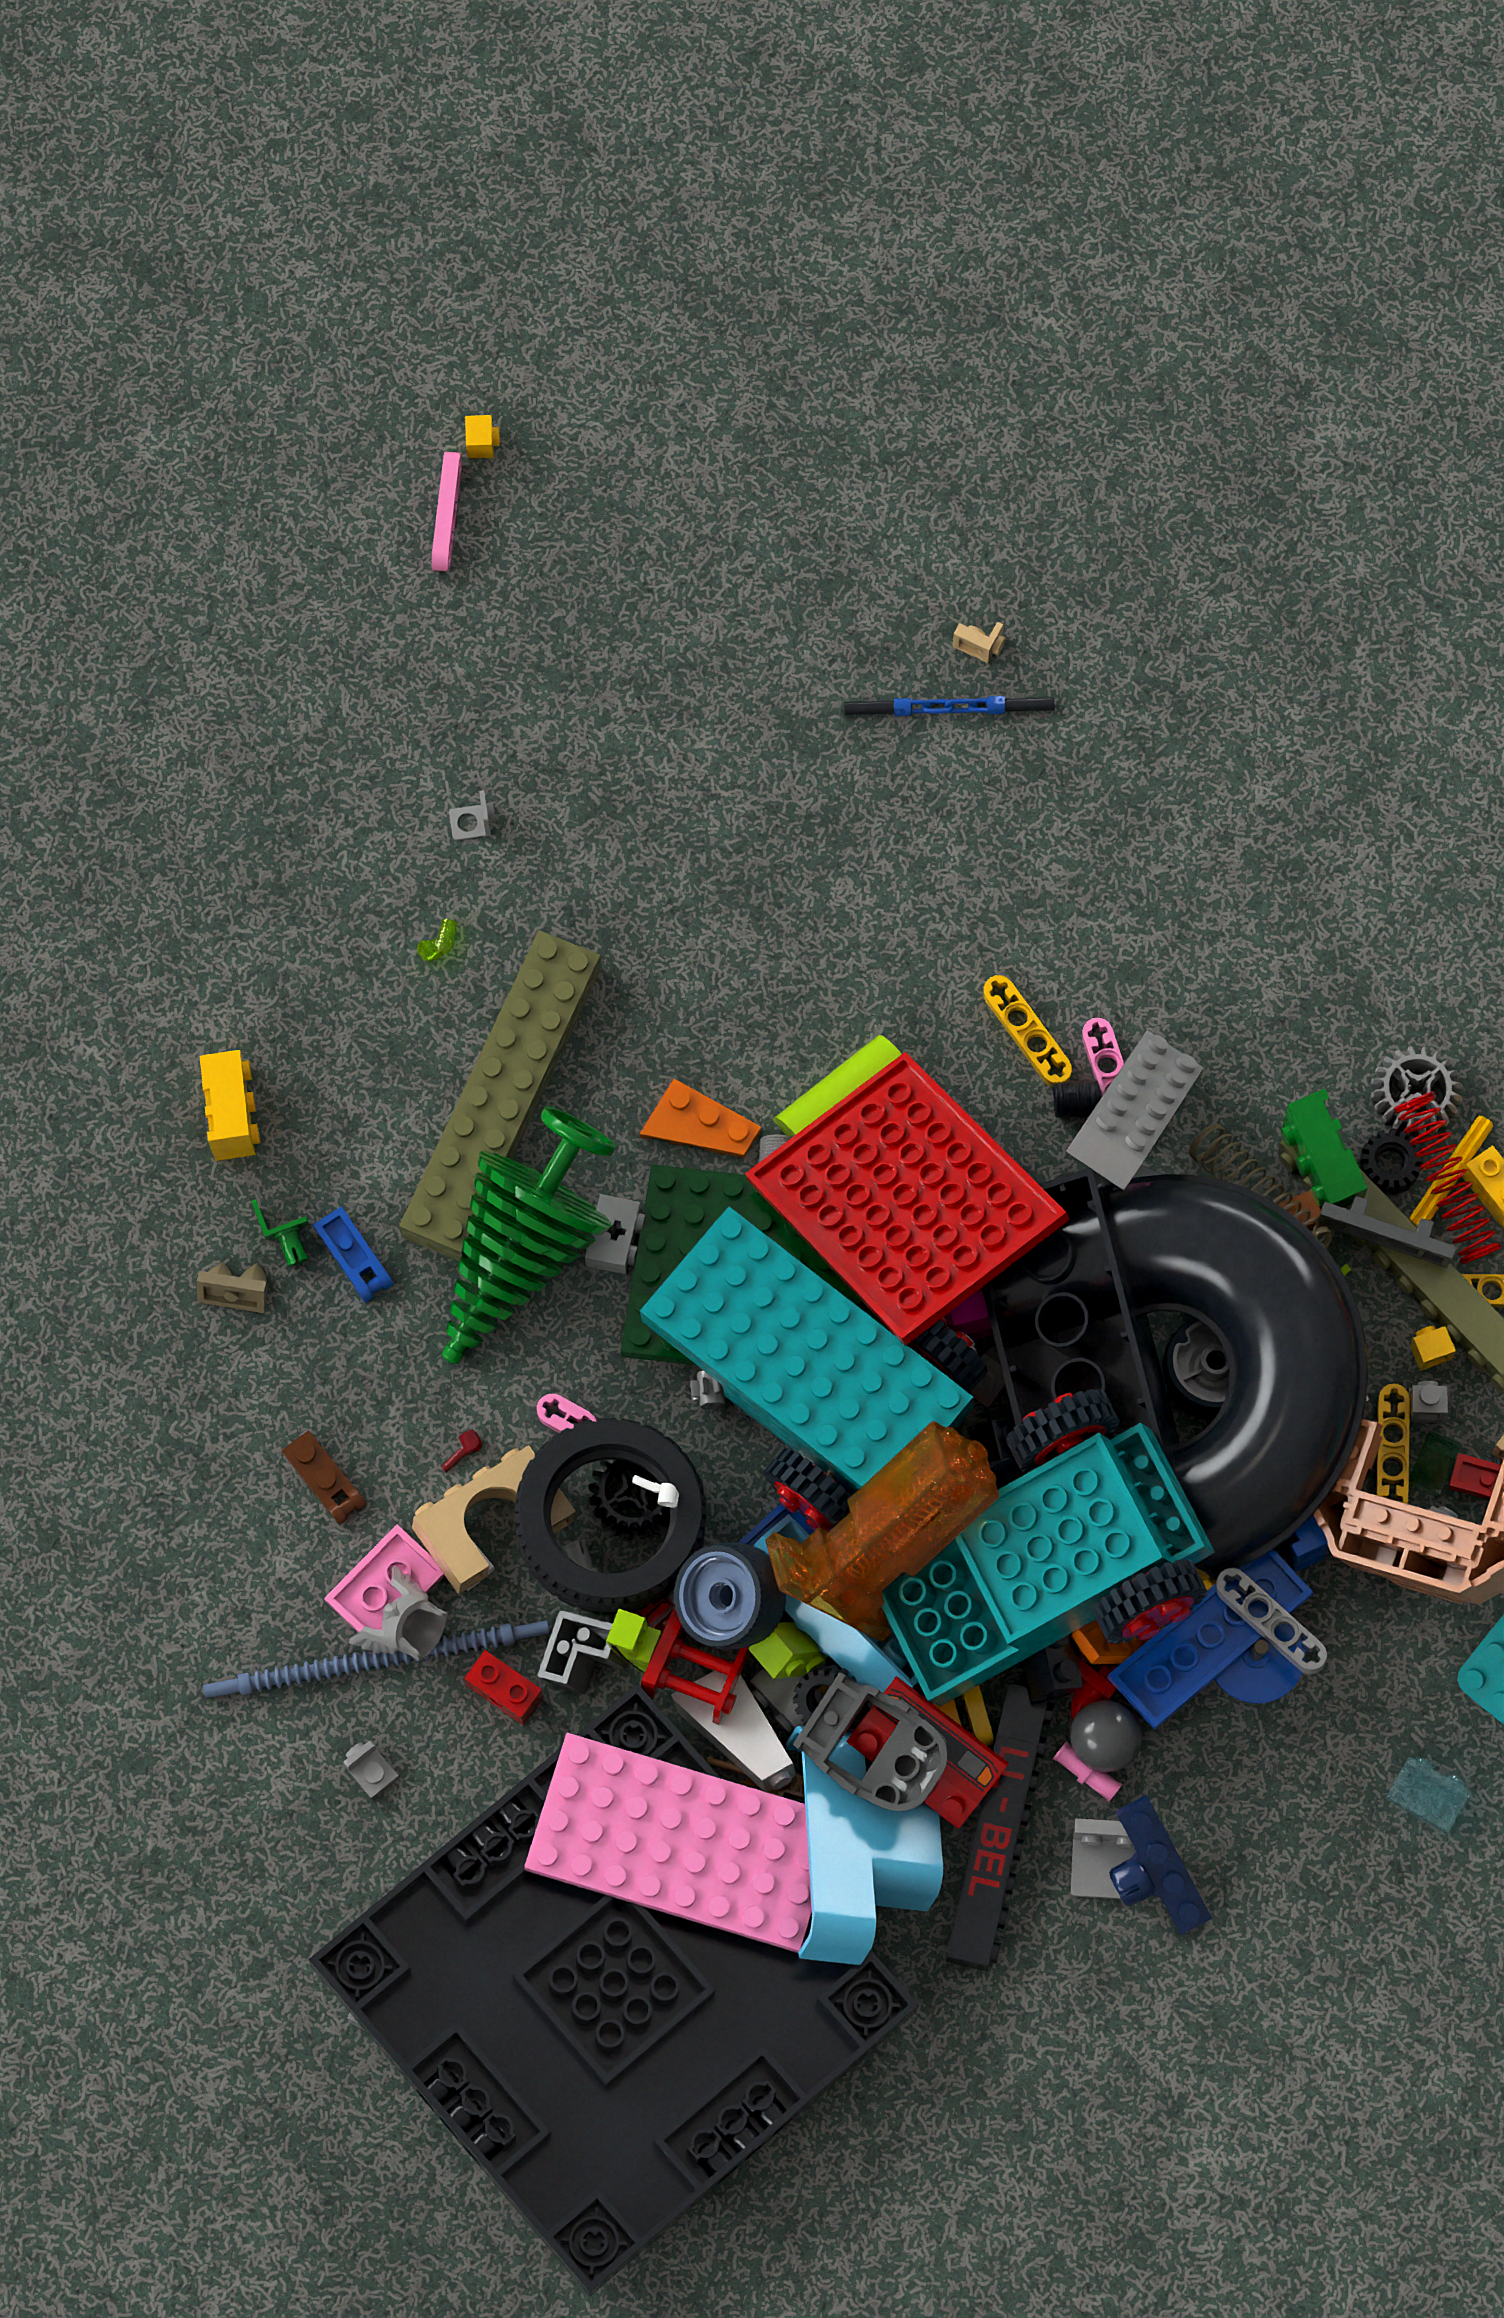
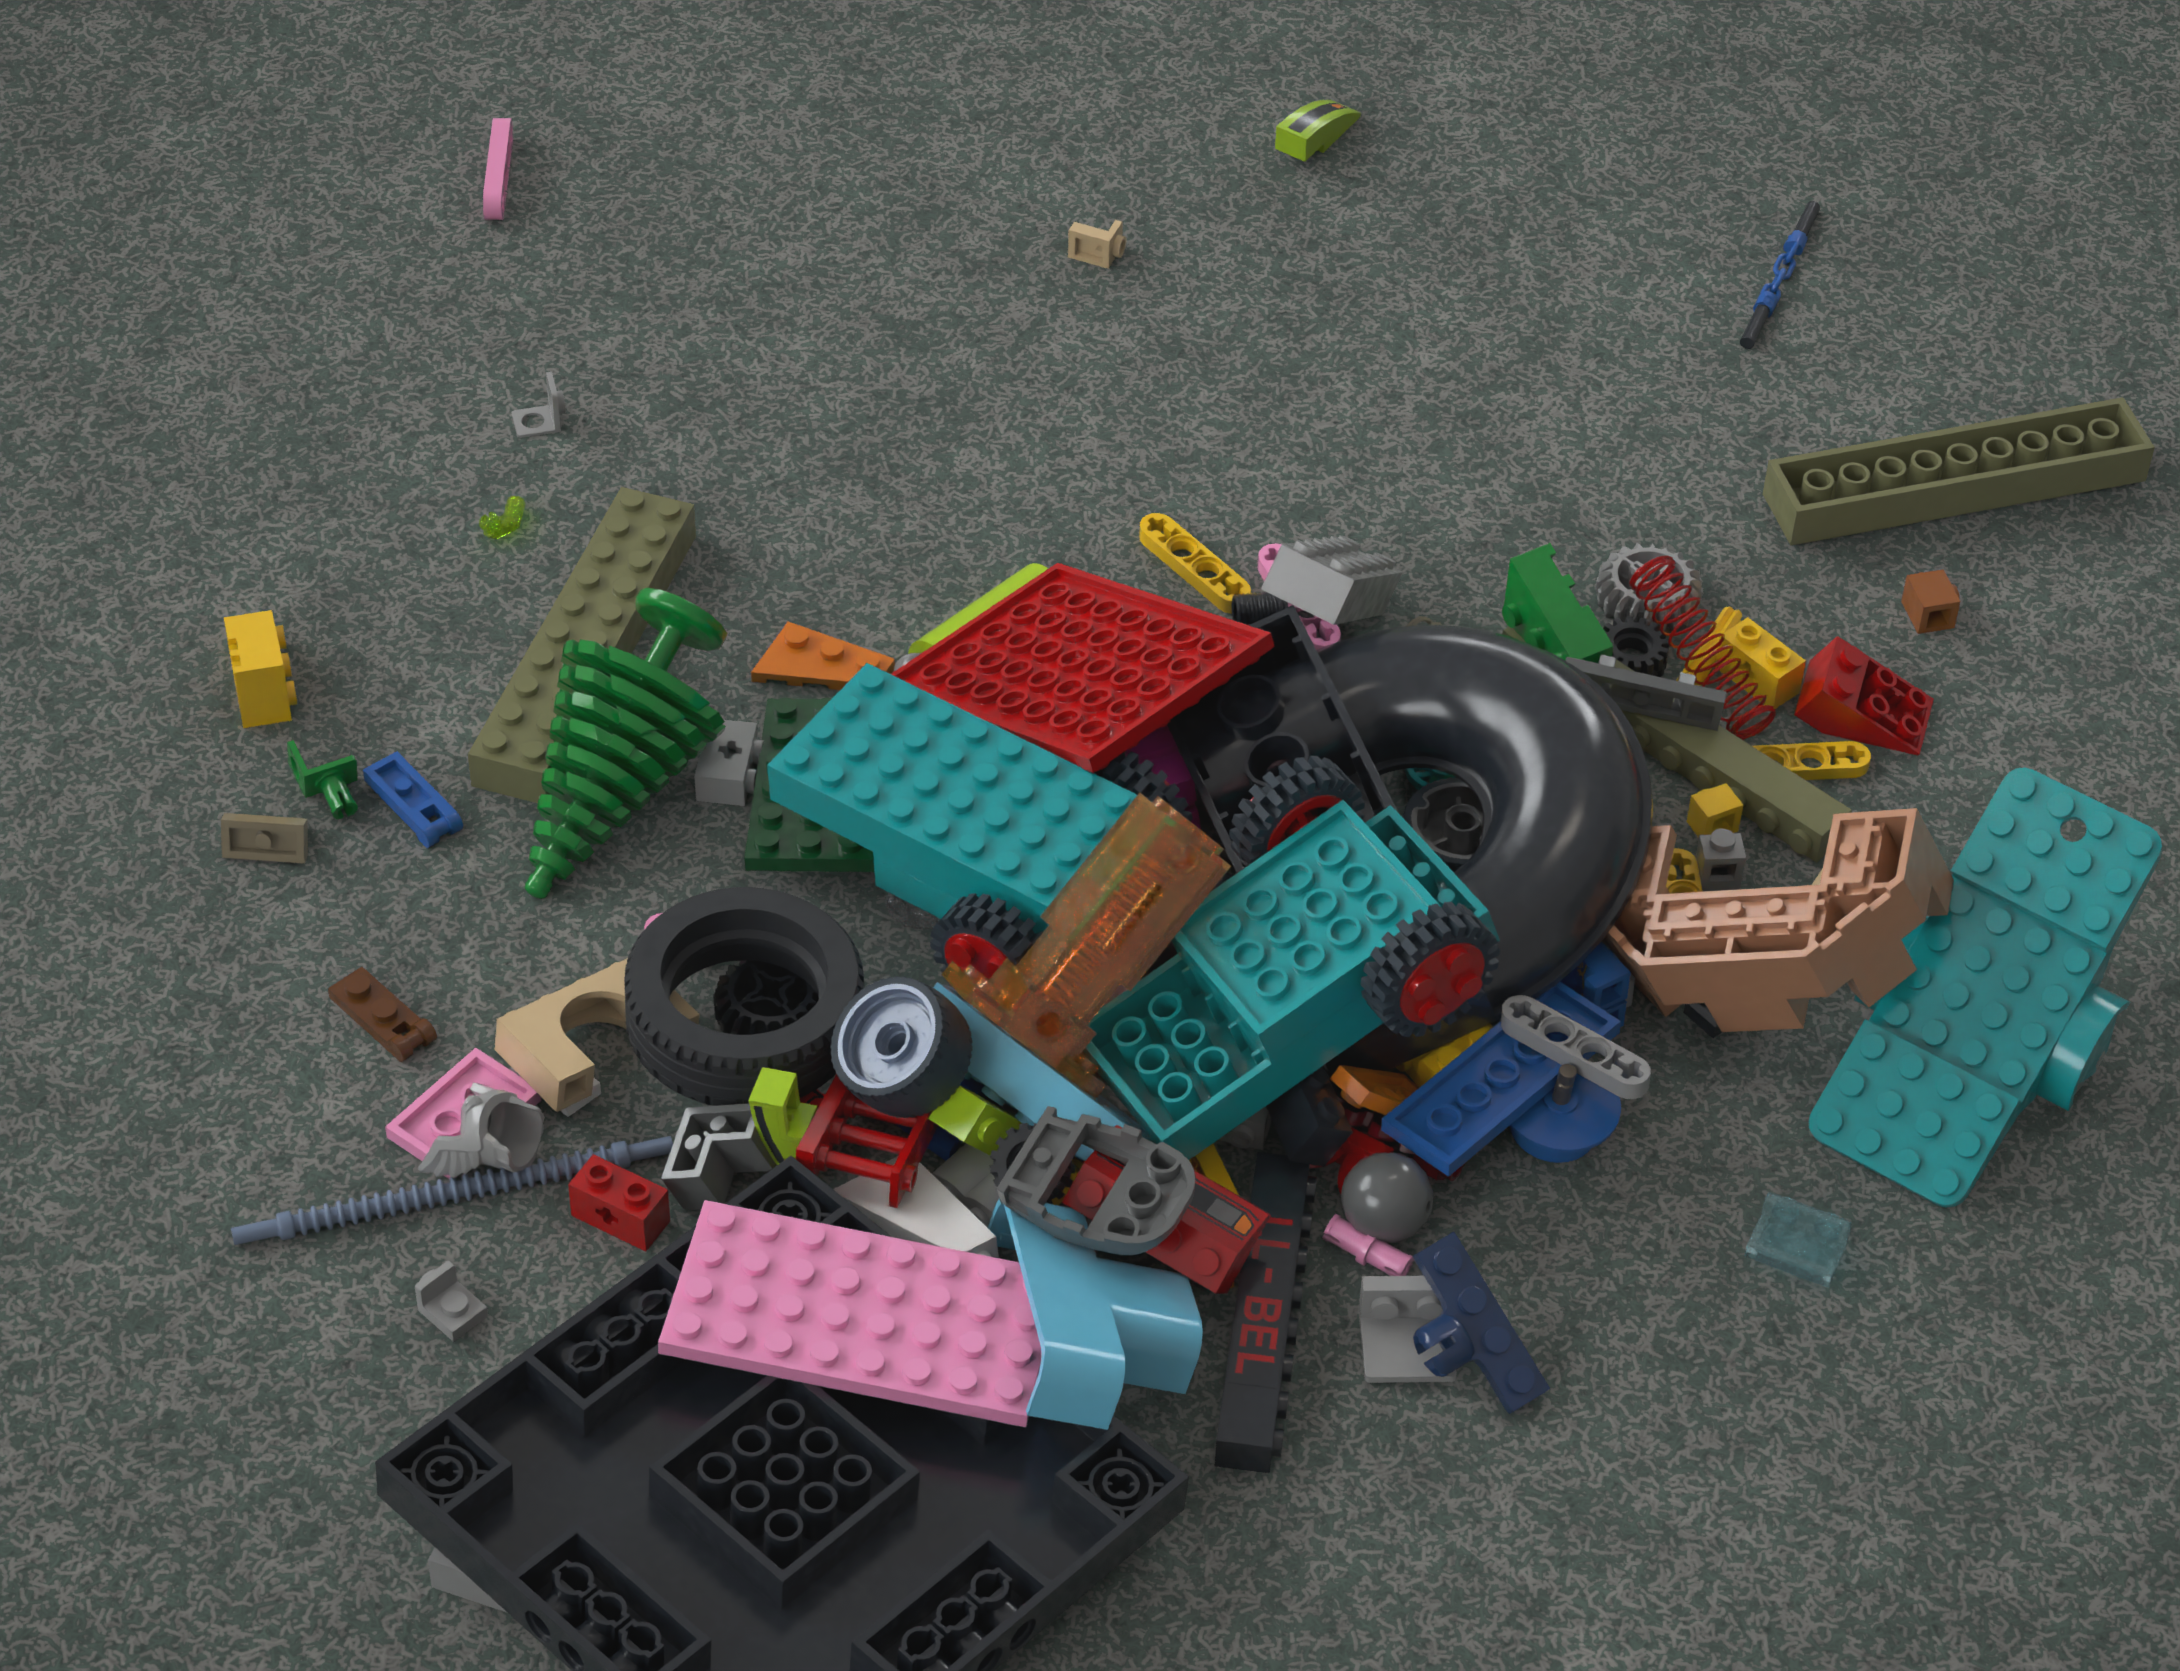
camera: 10 degrees left, 25 degrees down
(471, 1444) = (563, 972): dark red hand -> none
(481, 436) = (533, 108): yellow plate -> none
(667, 1492) = (813, 947): white hand -> none
(707, 1391) = (856, 896): light grey gear -> none
(995, 705) = (1119, 298): piece -> none
(1195, 500) = (1313, 128): none -> lime slope

